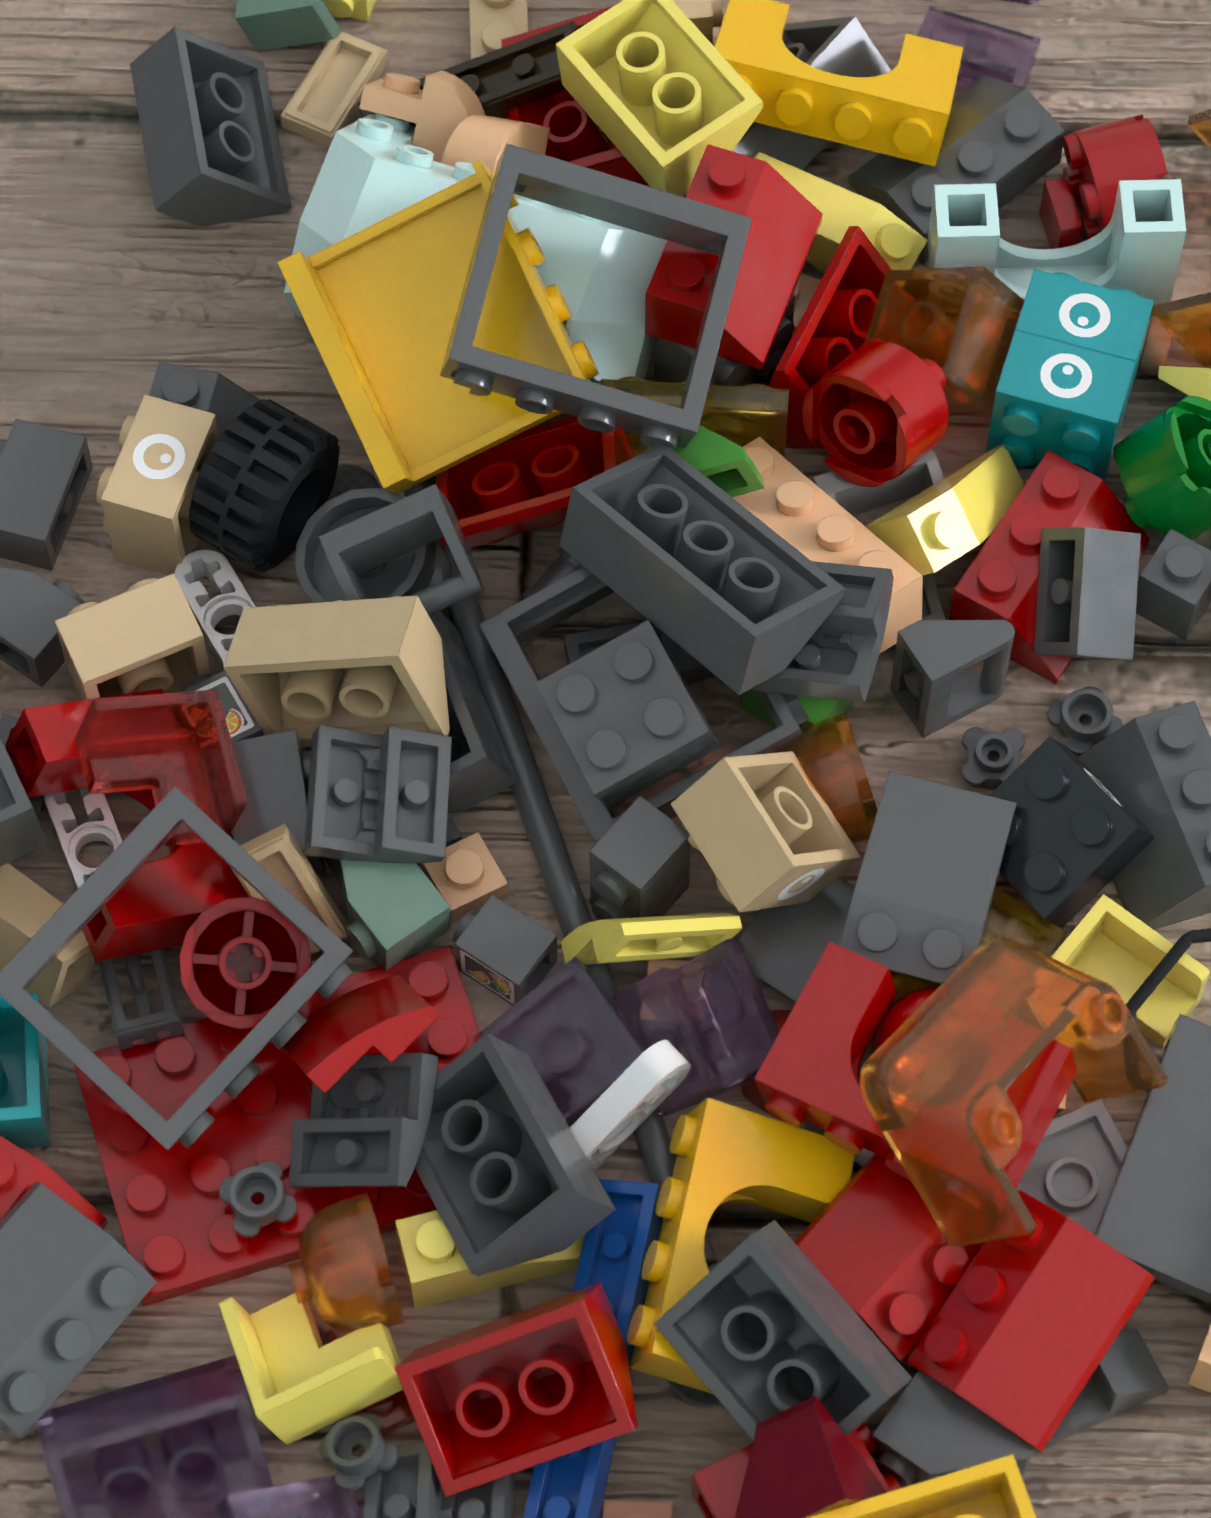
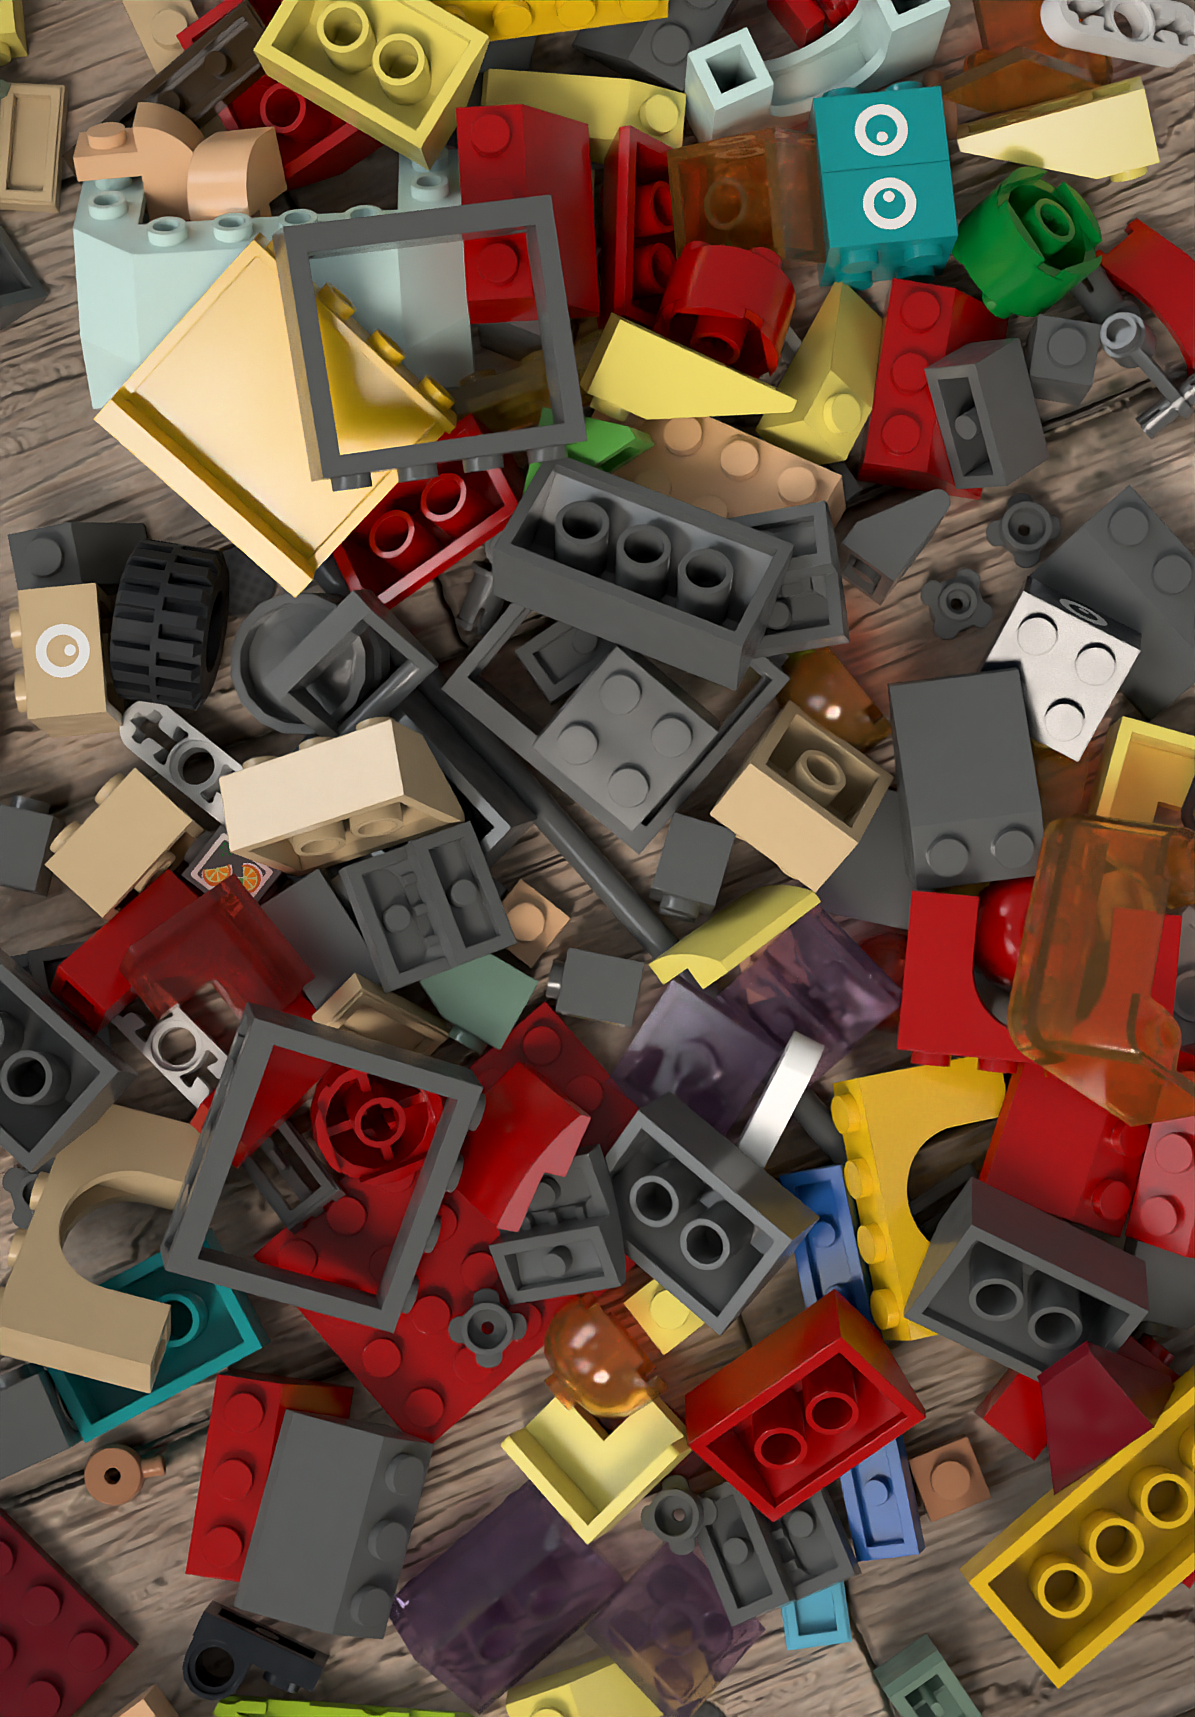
camera: 25 degrees left, 20 degrees up
(796, 433) = (667, 380): none -> light yellow slope

